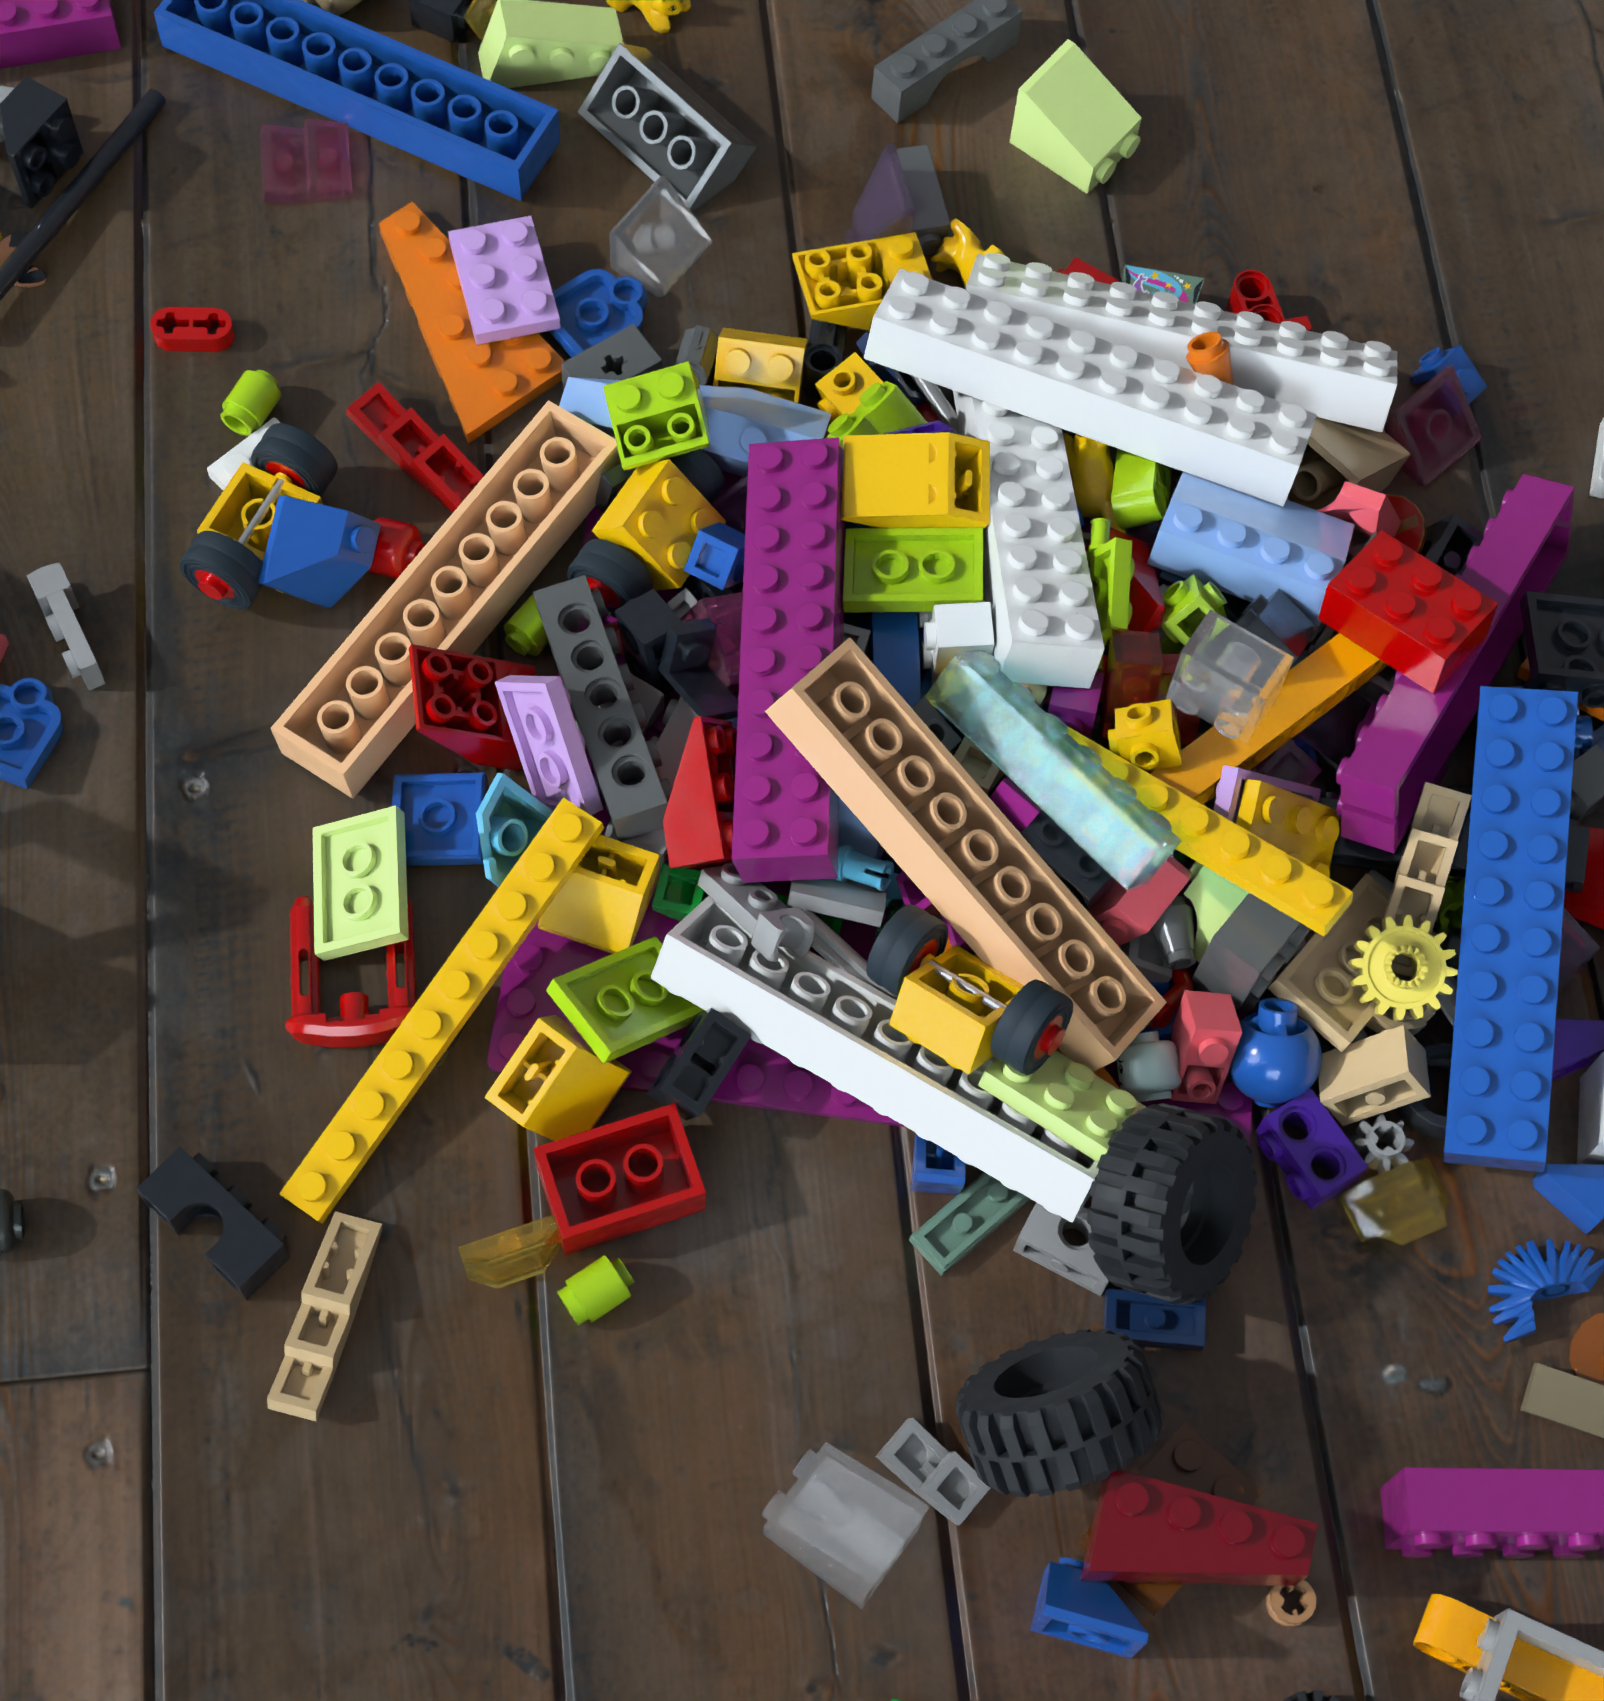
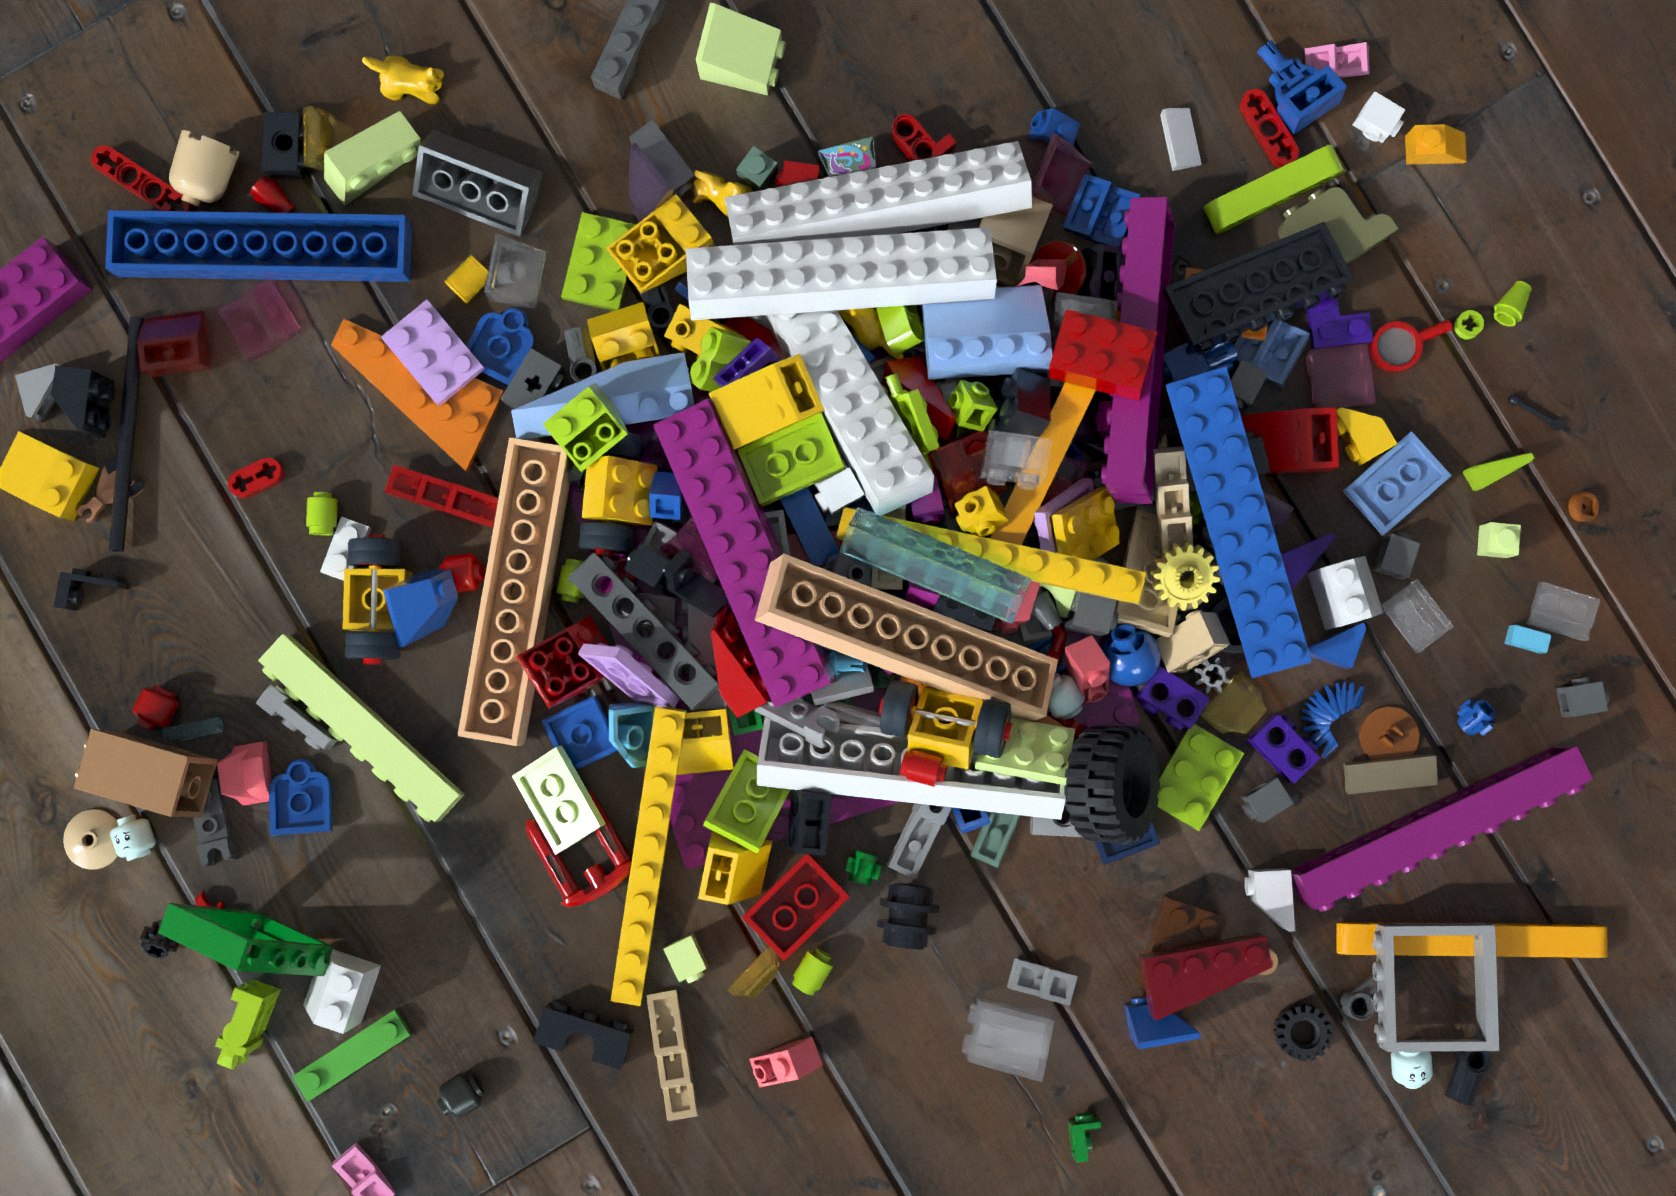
camera: 15 degrees left, 20 degrees up
(147, 680) = (361, 728): none -> yellowish green brick
(182, 140) = (174, 344): none -> clear red slope
(401, 27) = (271, 196): none -> red cone
(421, 1183) = (686, 958): none -> yellowish green brick
(488, 1402) = (786, 1062): none -> coral slope
(592, 221) = (468, 278): none -> yellow piece
(744, 1176) = (863, 868): none -> green gear
(762, 285) = (592, 272): none -> lime plate
(773, 1275) = (908, 916): none -> black piece
(844, 1172) = (917, 838): none -> light grey plate
(904, 1039) = (923, 768): none -> red brick
(1035, 245) = (757, 170): none -> sand green brick
(1059, 1413) = (1122, 948): black tyre -> none
(1210, 356) = (908, 219): orange cone -> none
(1298, 1280) = (1196, 776): none -> lime plate
(1346, 1504) = (1273, 894): none -> white slope
(1393, 1359) = (1266, 800): none -> dark grey brick
(1437, 1298) = (1278, 754): none -> dark purple brick
(1465, 486) = (1099, 212): none -> blue slope

